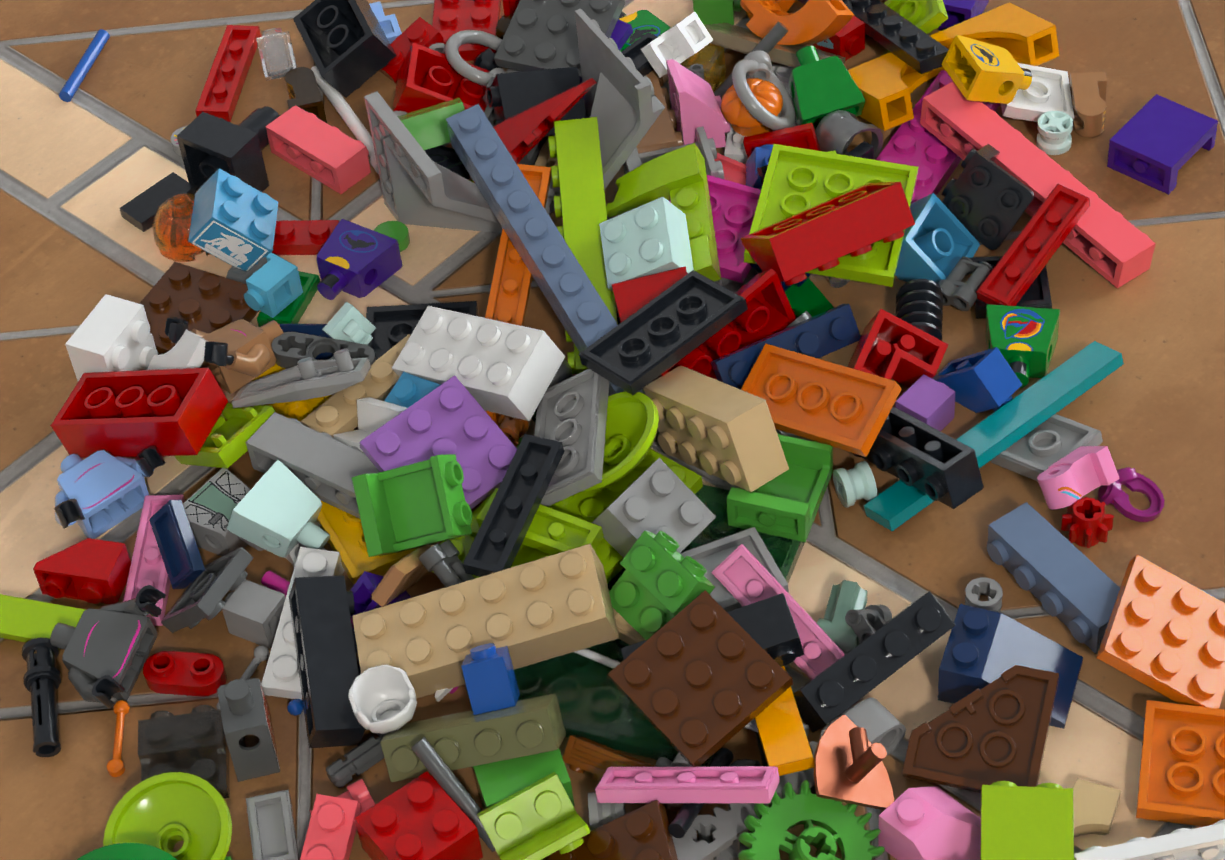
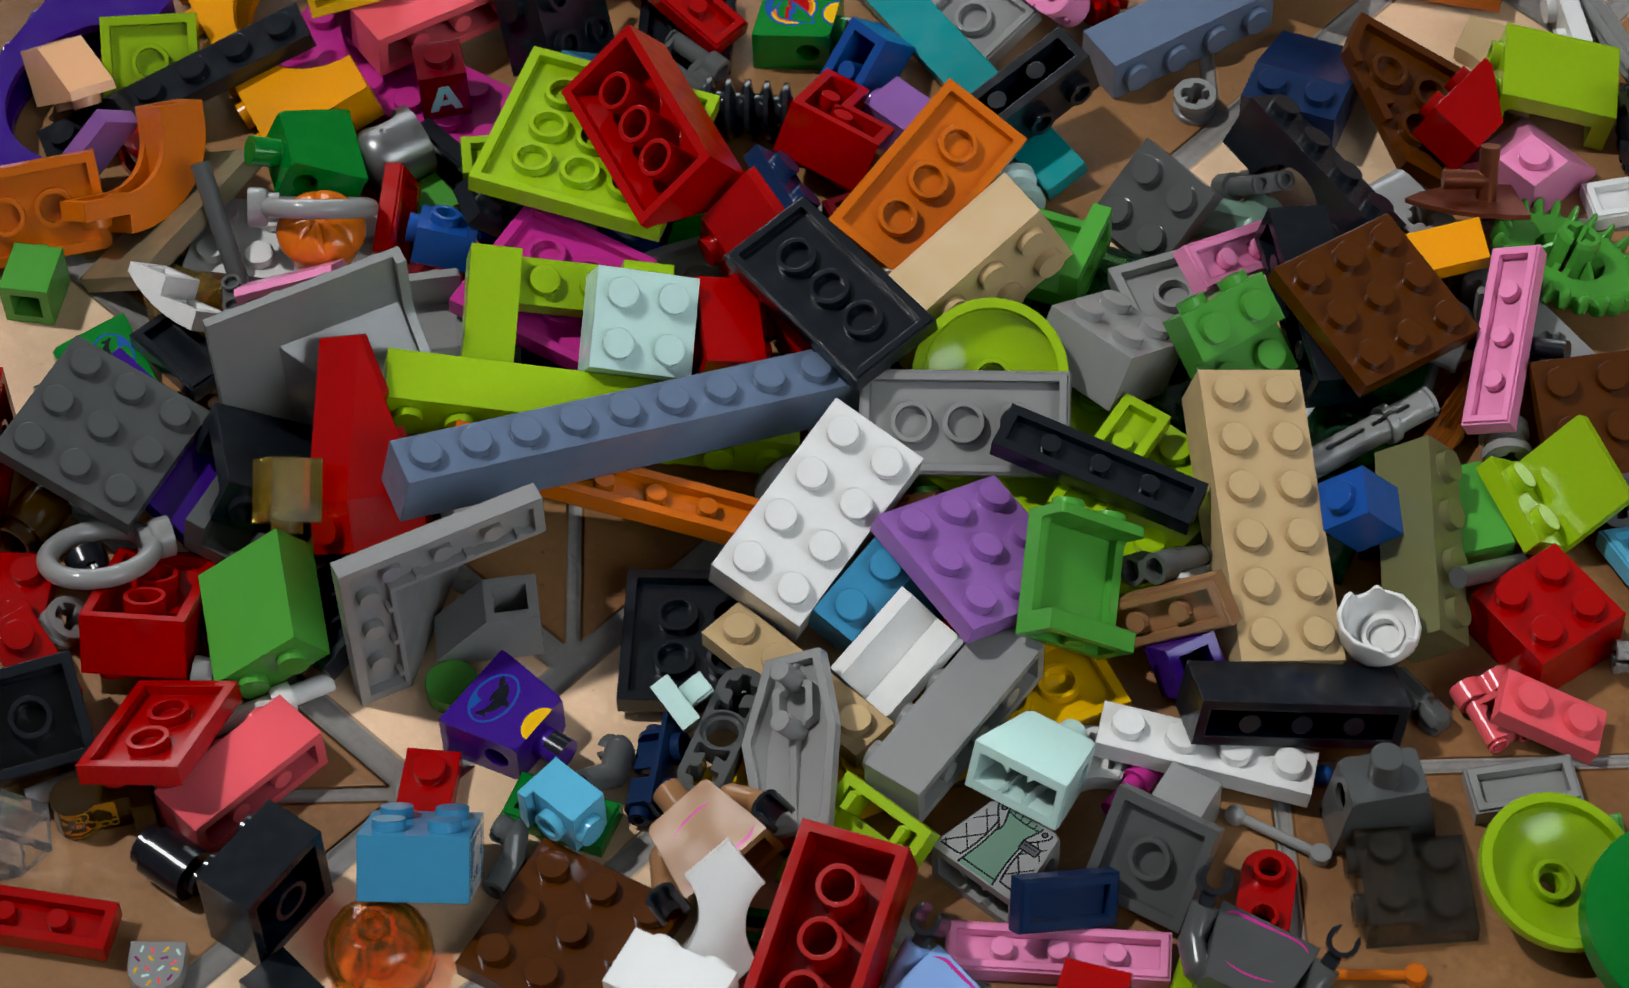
camera: 90 degrees left, 5 degrees up
(312, 313) = (615, 763): none -> dark grey arm
(328, 95) = (159, 733): none -> red plate
(430, 246) = (491, 618): none -> light grey slope
(496, 98) = (287, 492): none -> clear yellow brick
(606, 715) = (1383, 426): none -> light grey pin
(839, 563) = (1157, 202): none -> dark grey plate
(906, 140) = (441, 79): none -> dark red brick
(960, 765) = (1463, 118): none -> red slope

